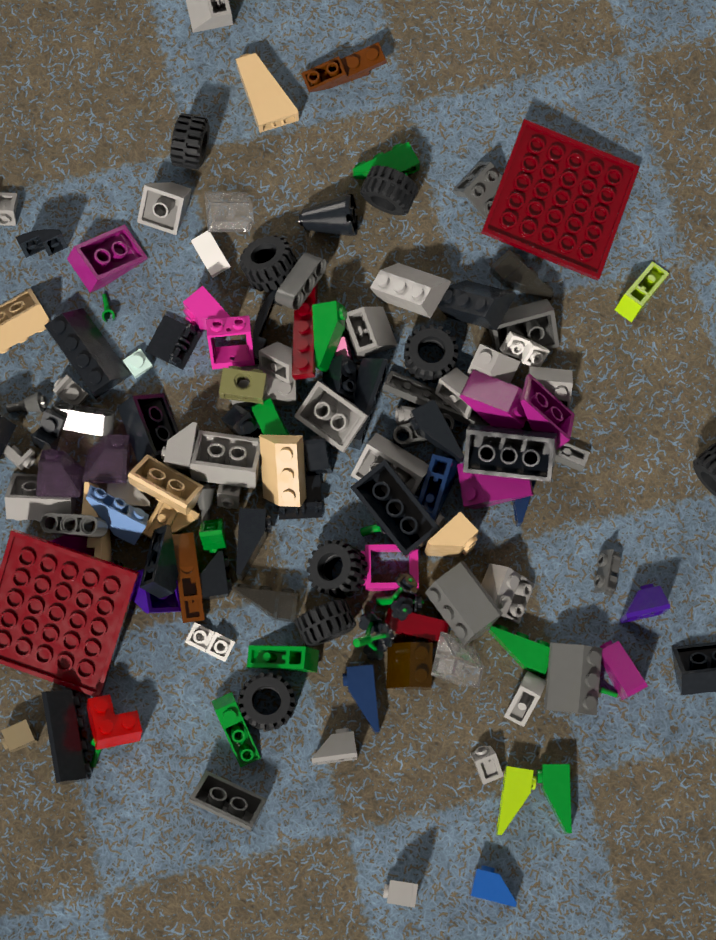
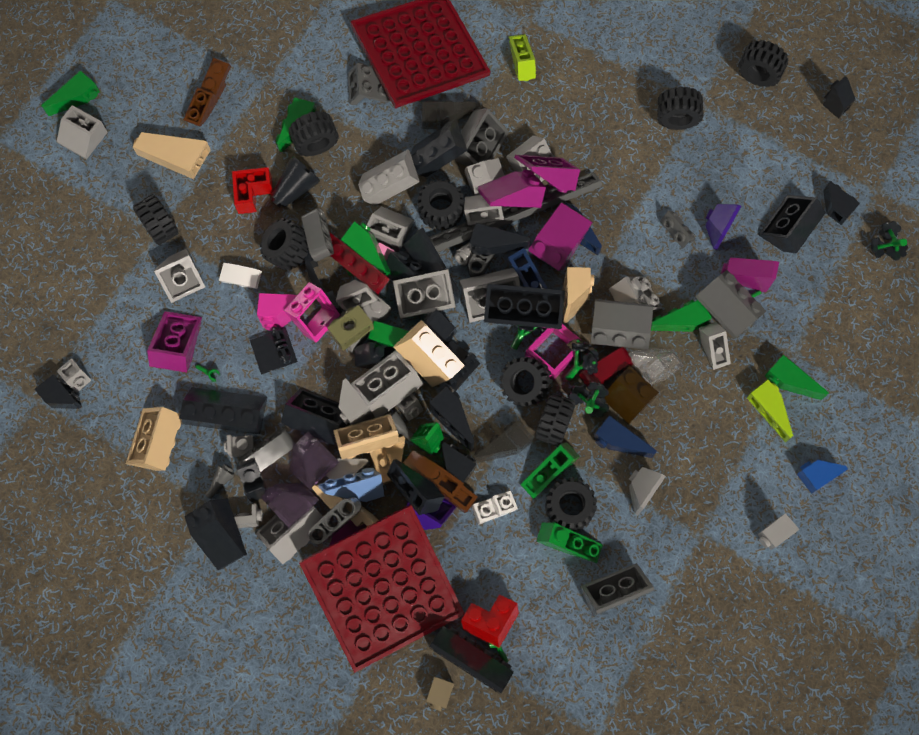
camera: 45 degrees left, 5 degrees down
(38, 240) = (124, 365): black slope -> none
(137, 363) = (264, 386): light aqua plate -> none
(228, 211) = (226, 239): clear slope -> none
(292, 182) = (248, 185): none -> red brick
(487, 764) = (736, 405): light grey bracket -> none
(510, 452) = (555, 208): black slope -> none
(524, 349) = (493, 149): white slope -> none

